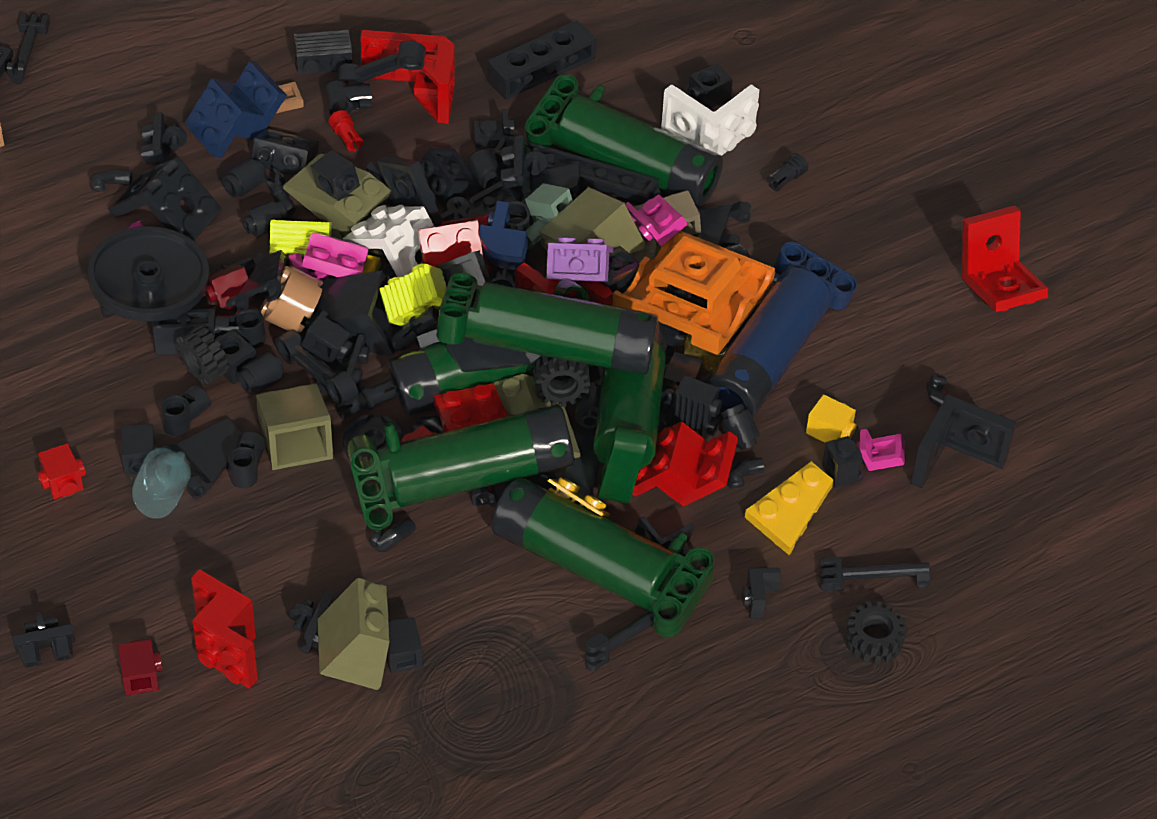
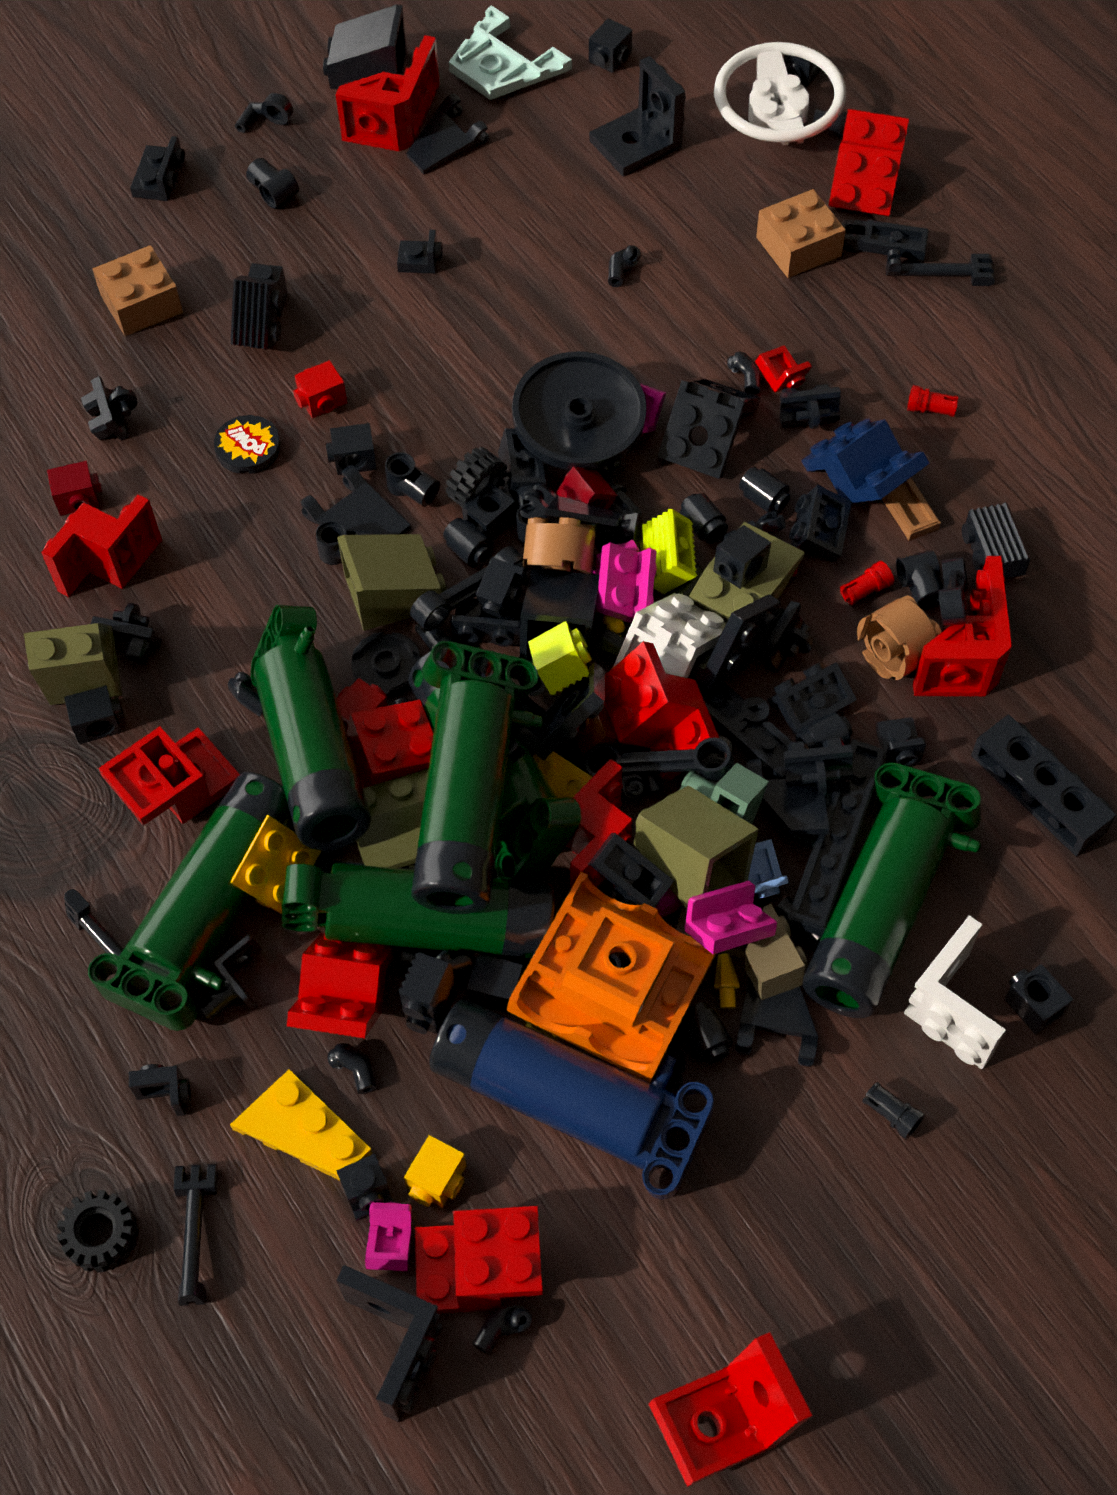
camera: 90 degrees right, 10 degrees up
(108, 535) = (247, 444): none -> tile
(119, 154) = (781, 369): none -> red bracket
(160, 482) = (307, 471): clear light blue piece -> none
(170, 73) = (925, 400): none -> red pin
(410, 111) = (896, 637): none -> medium nougat brick
(482, 574) = (169, 775): none -> red bracket
(501, 245) = (652, 735): dark blue brick -> none
(578, 261) = (609, 816): medium lavender bracket -> none
(740, 423) = (411, 1053): black brick -> none
(900, 391) = (479, 1259): none -> red bracket

